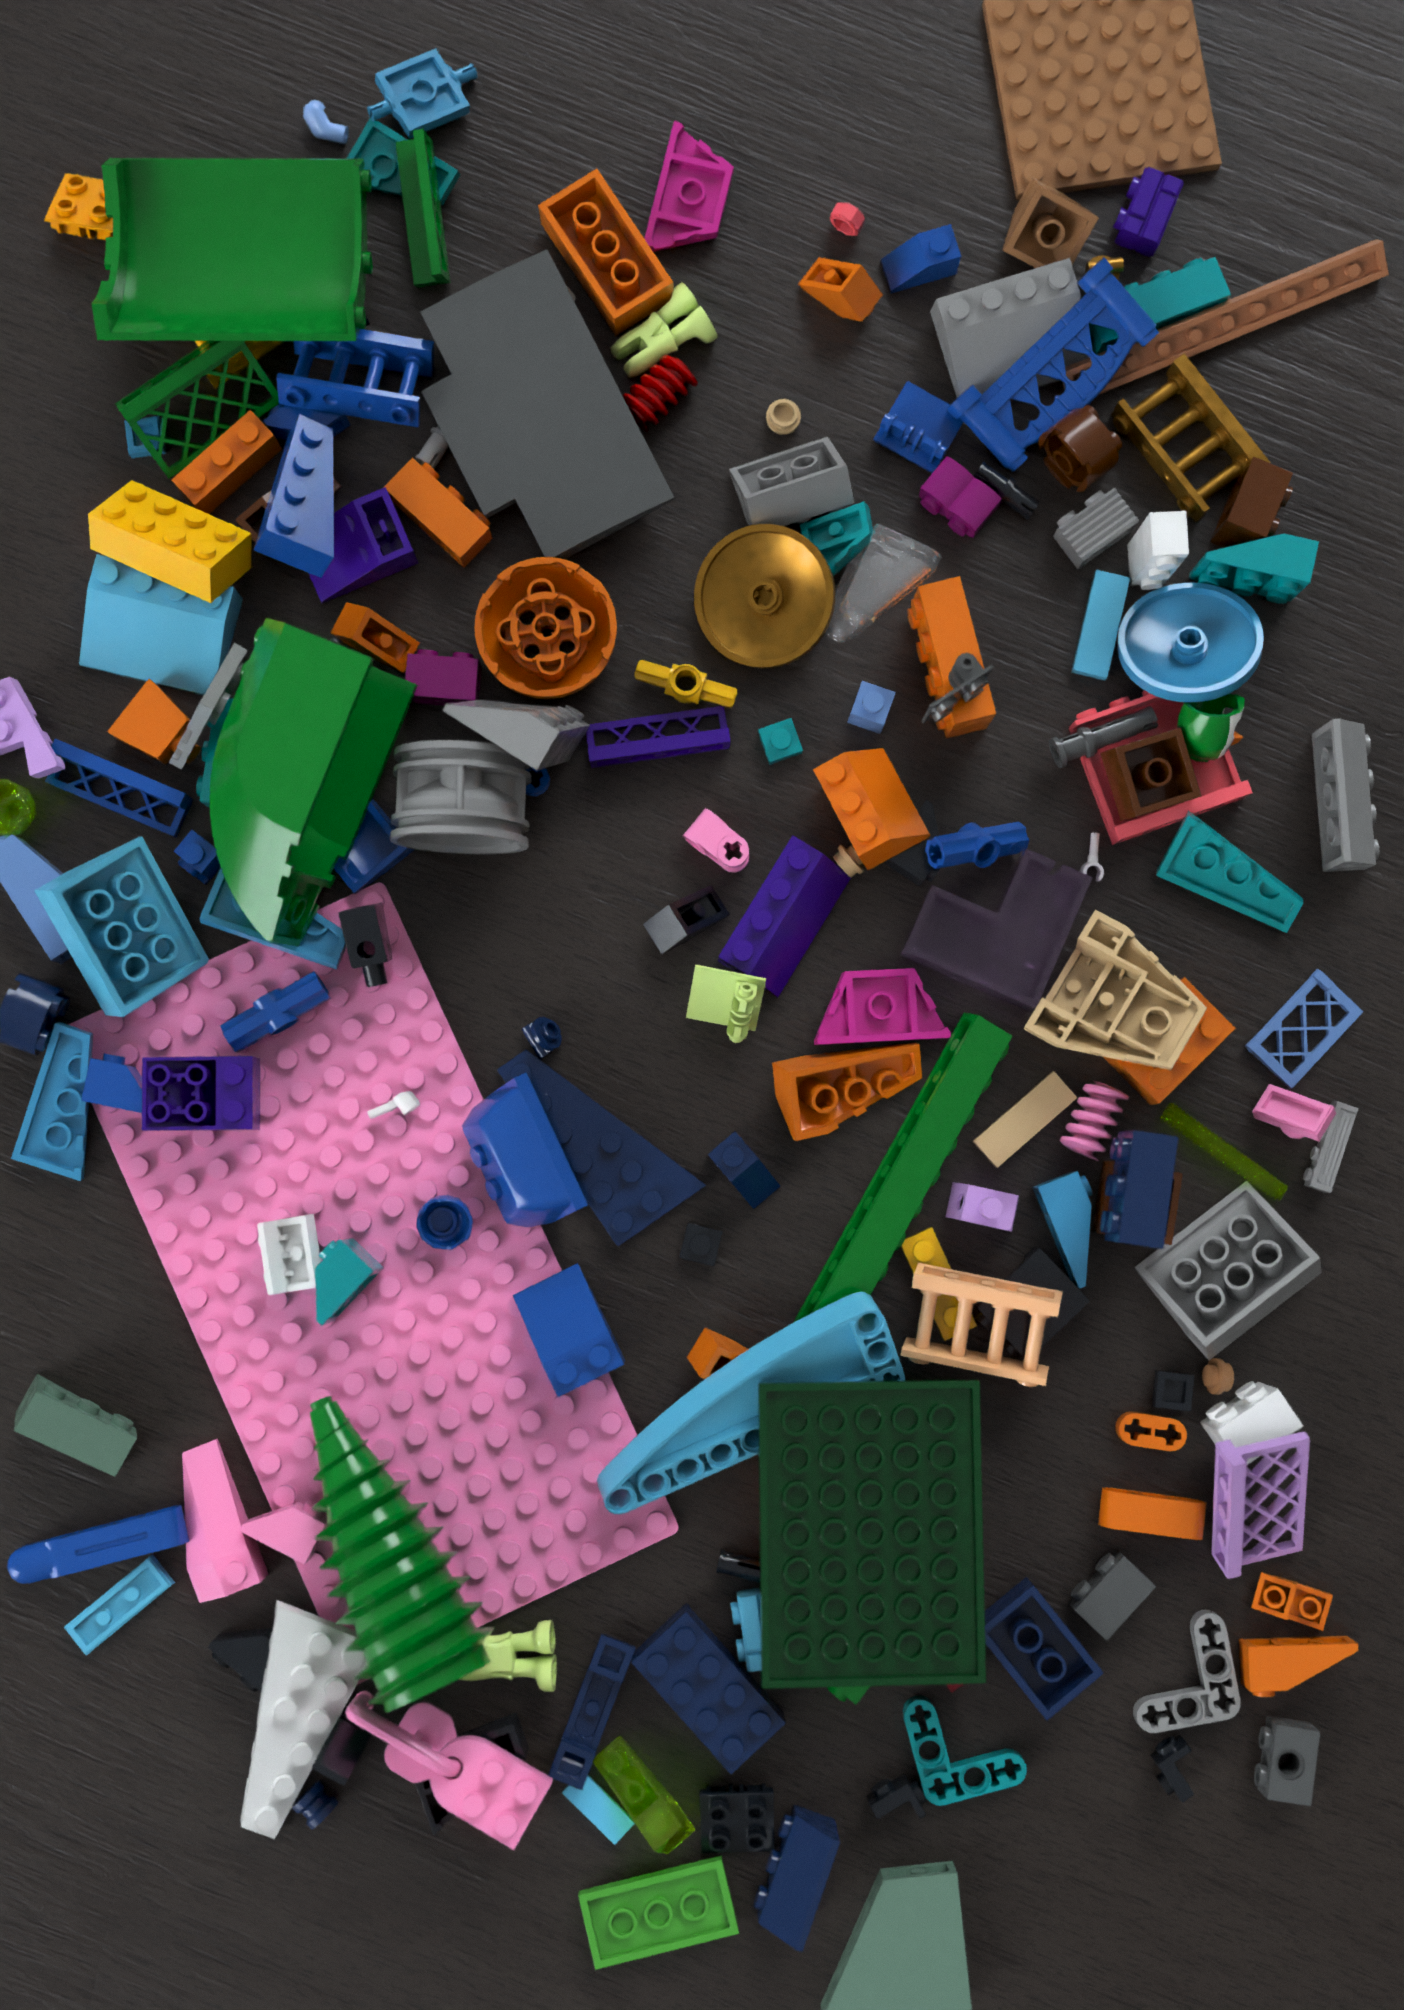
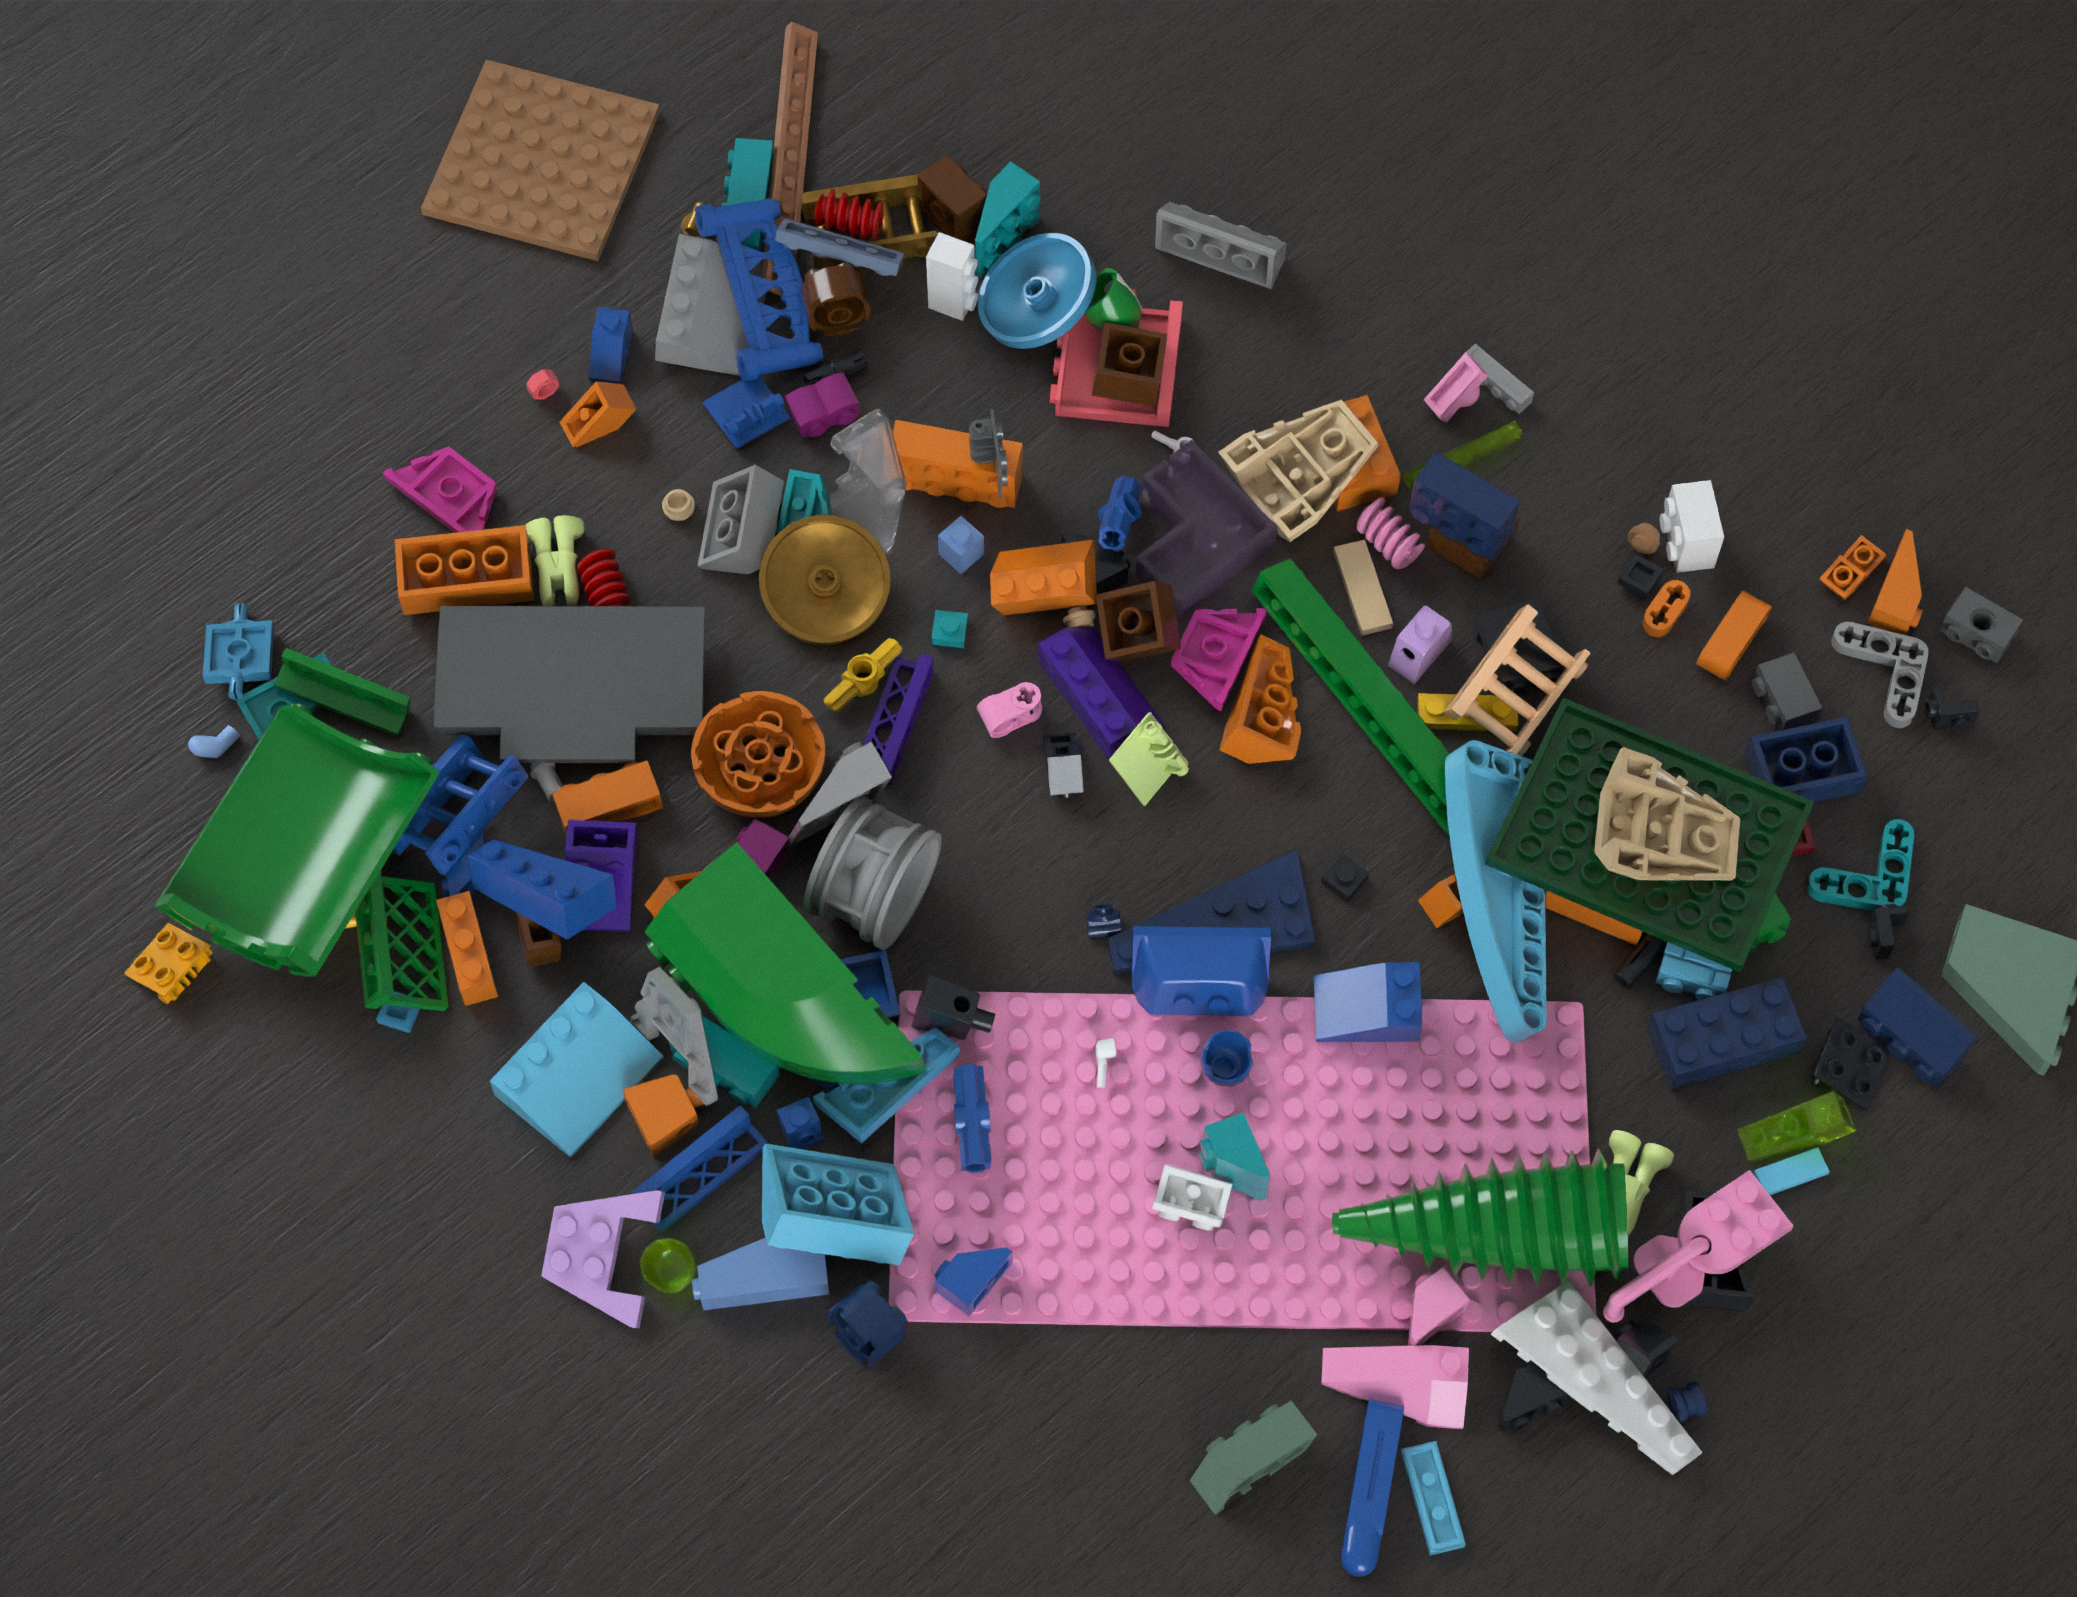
camera: 60 degrees left, 20 degrees down
(56, 1118) = (968, 1350): dark azure wing -> none
(170, 541) = (514, 1012): yellow brick -> none
(200, 1093) = (1015, 1202): dark purple slope -> none
(591, 1711) = (1698, 1134): dark blue slope -> none
(658, 1912) = (1902, 1161): bright green plate -> none
(744, 1169) = (1296, 813): dark blue slope -> none
(863, 921) = (1138, 621): none -> reddish brown brick
(868, 1548) = (1661, 827): none -> tan wedge
(1047, 226) = (639, 244): medium nougat slope -> none
(1068, 1217) = (1462, 589): dark azure slope -> none
(1088, 741) = (1077, 399): dark grey pin -> none
(1095, 527) = (903, 320): light grey brick -> none
(1100, 625) = (984, 354): medium azure tile -> none
(1135, 422) = (830, 244): none -> sand blue plate
(1149, 211) = (668, 171): dark purple brick -> none
(1178, 414) = (849, 215): none -> red piece
(1221, 872) = (1235, 354): teal wing -> none
(1229, 1269) = (1562, 491): light grey slope -> none
(1232, 1506) = (1750, 560): lavender fence -> none
(1333, 1033) = (1406, 388): medium blue window -> none

